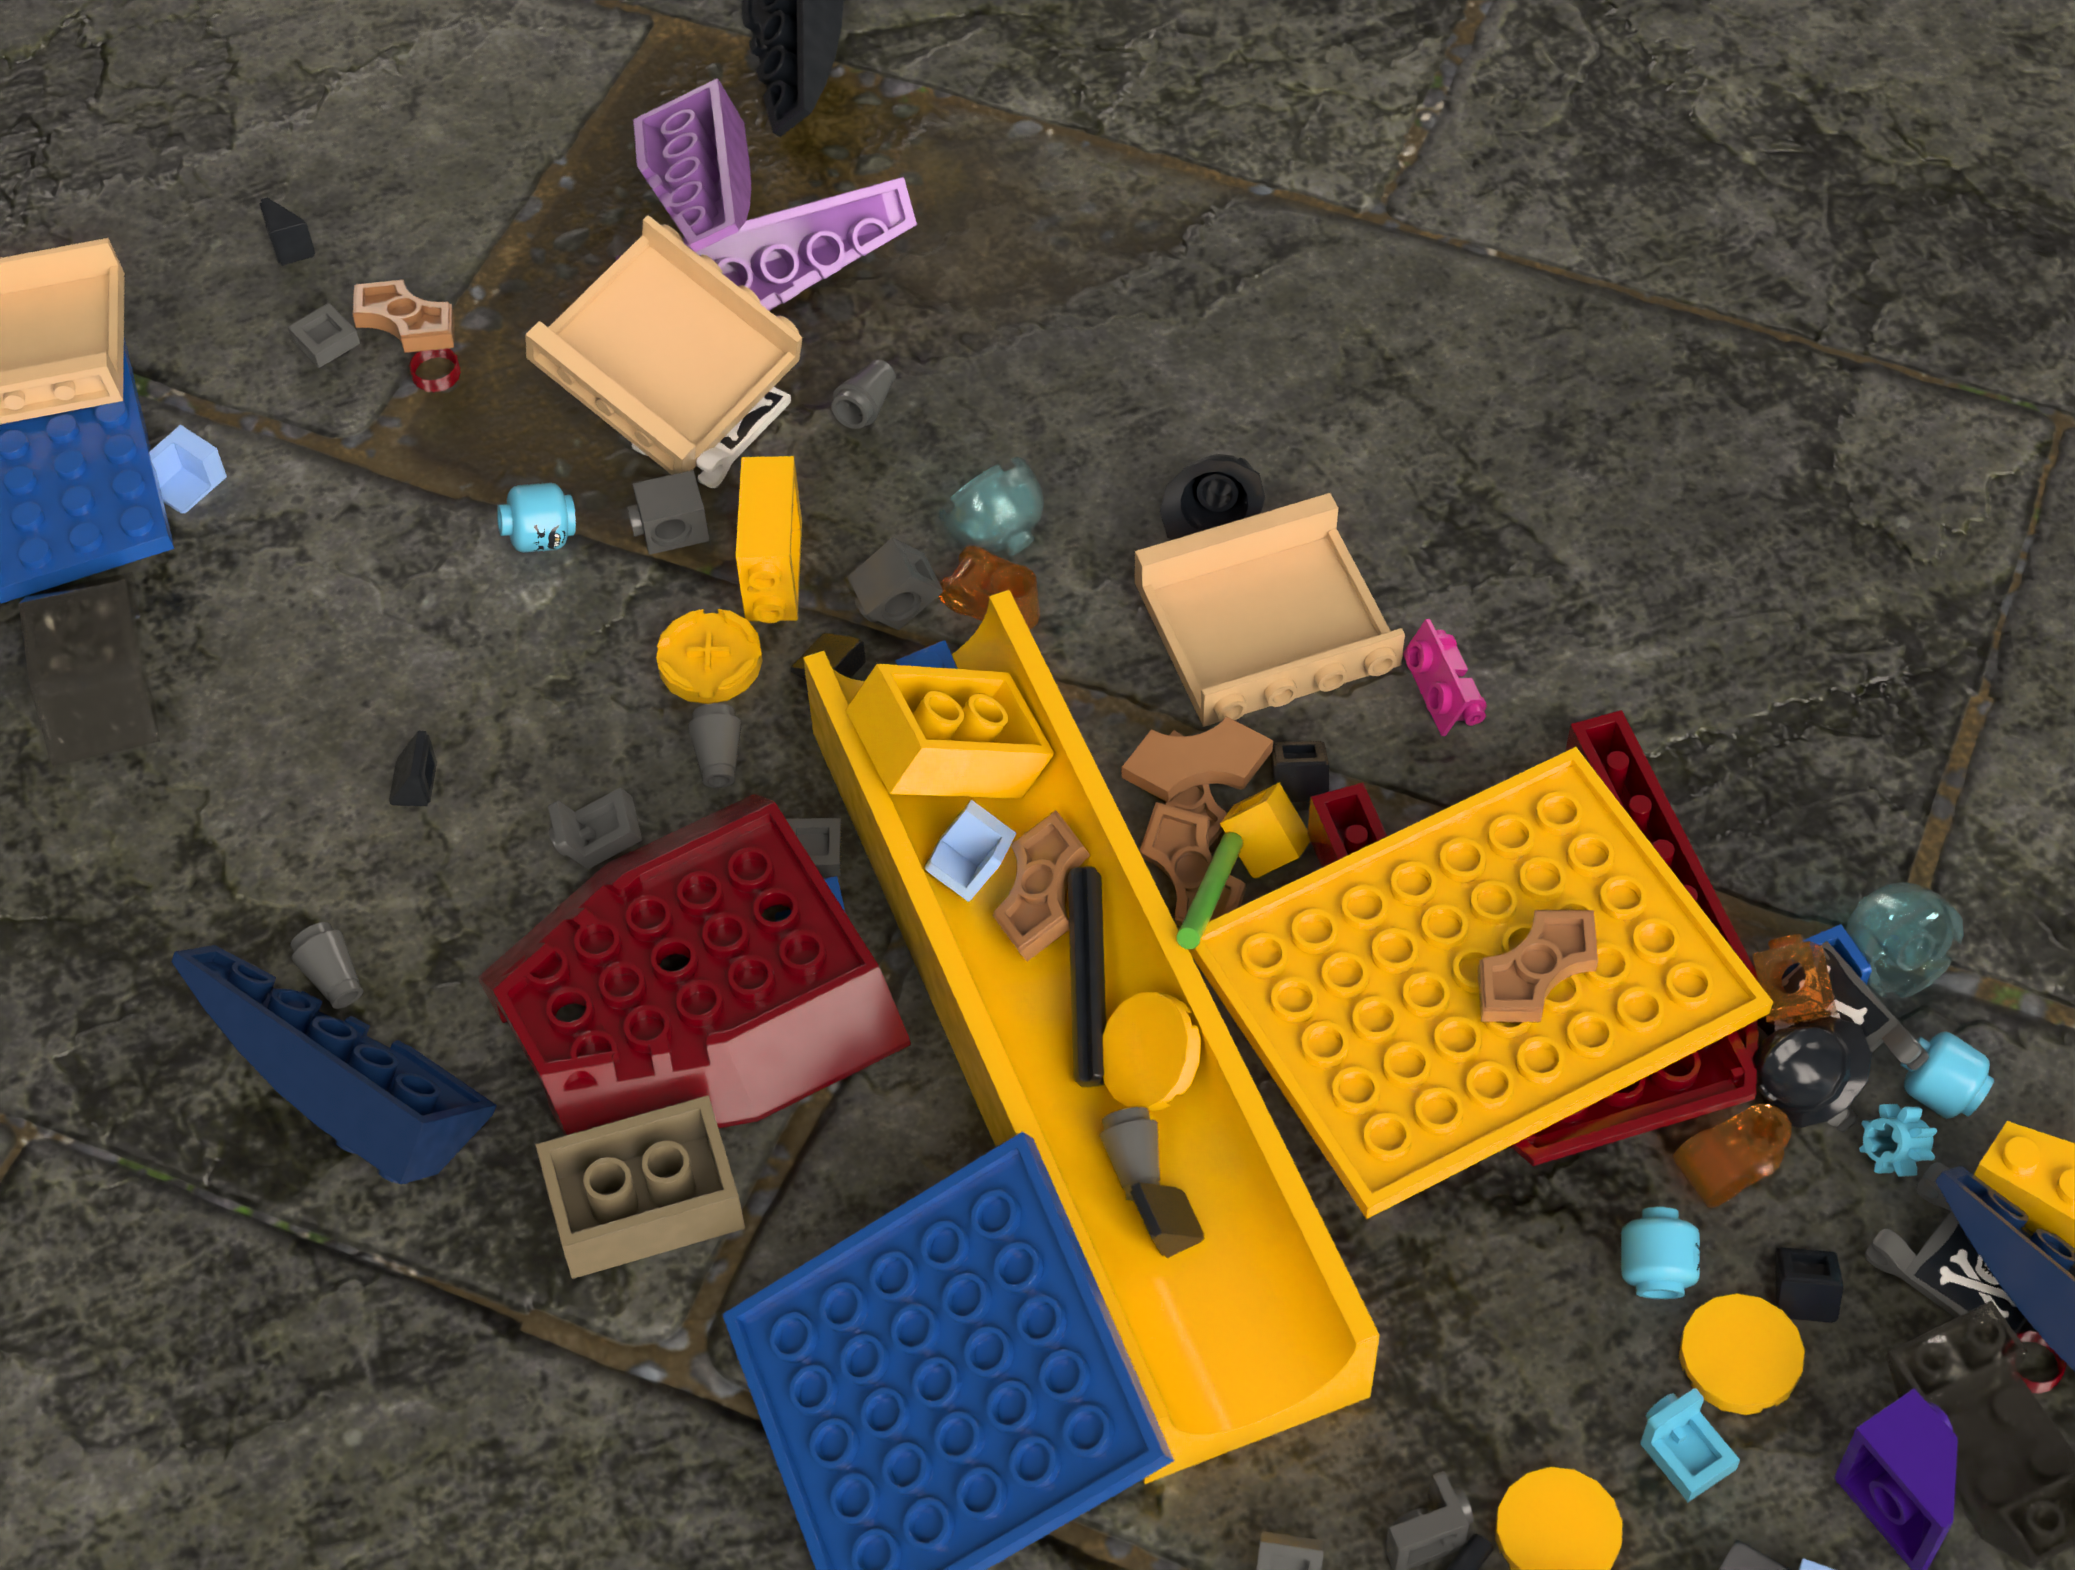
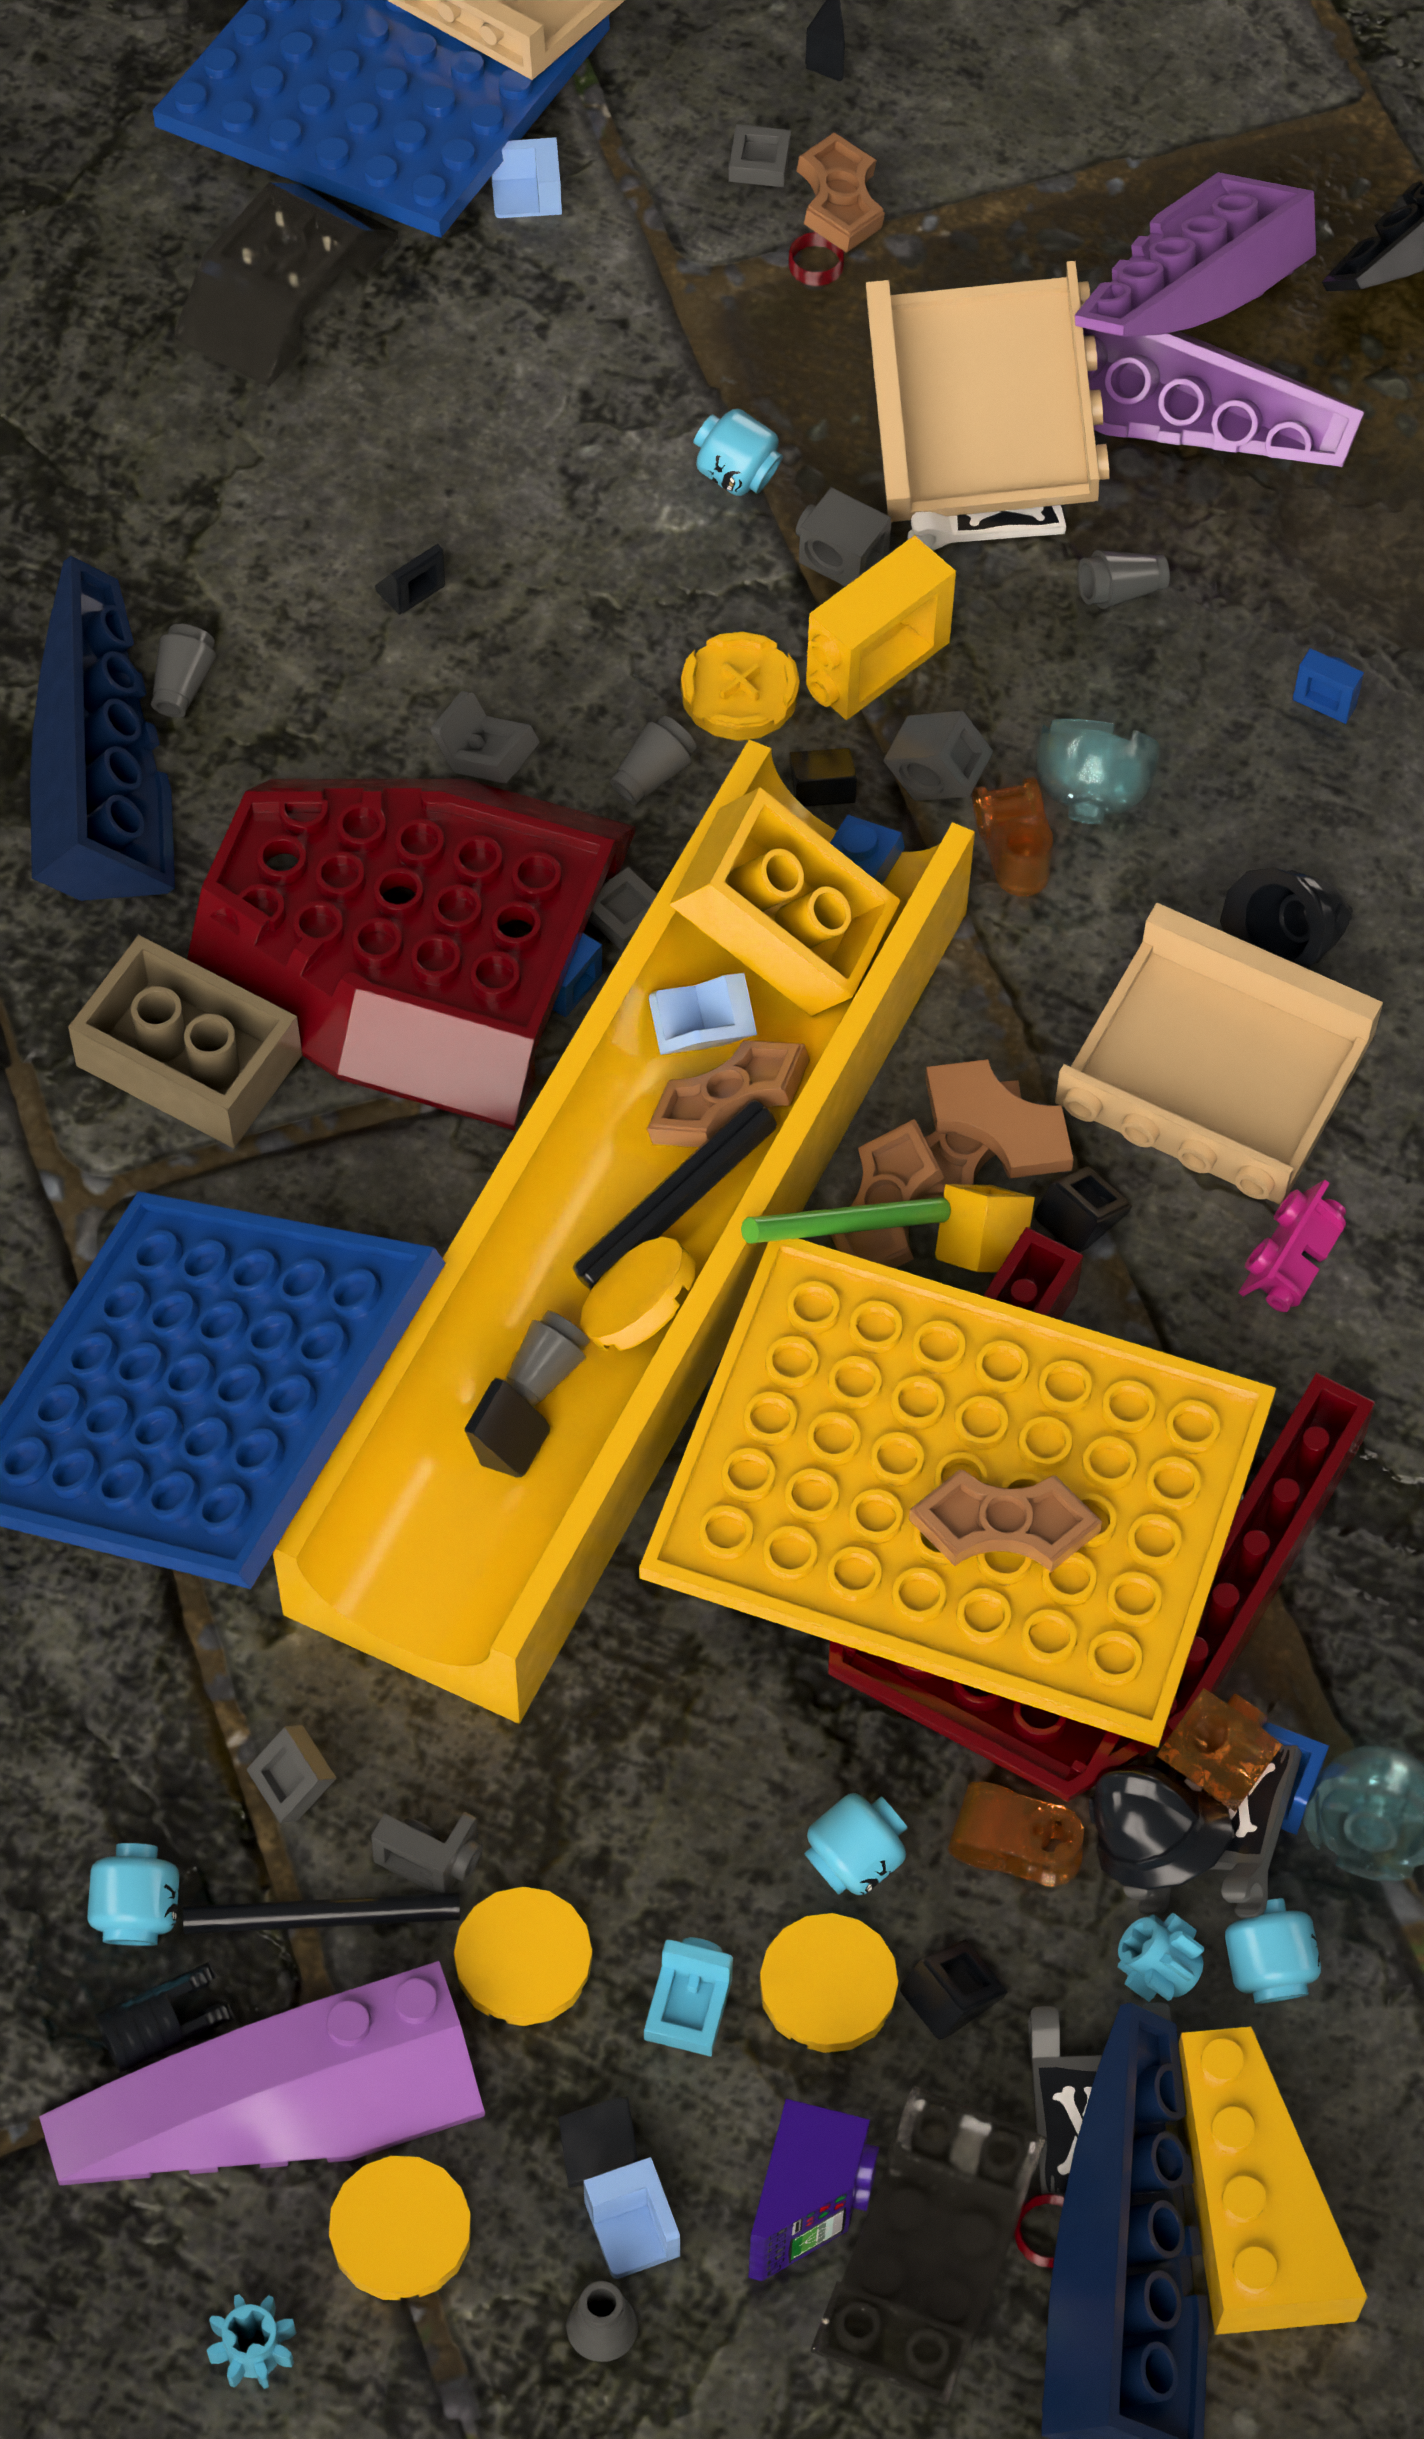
camera: 45 degrees right, 5 degrees up
(1063, 352) = (1328, 685): none -> blue plate

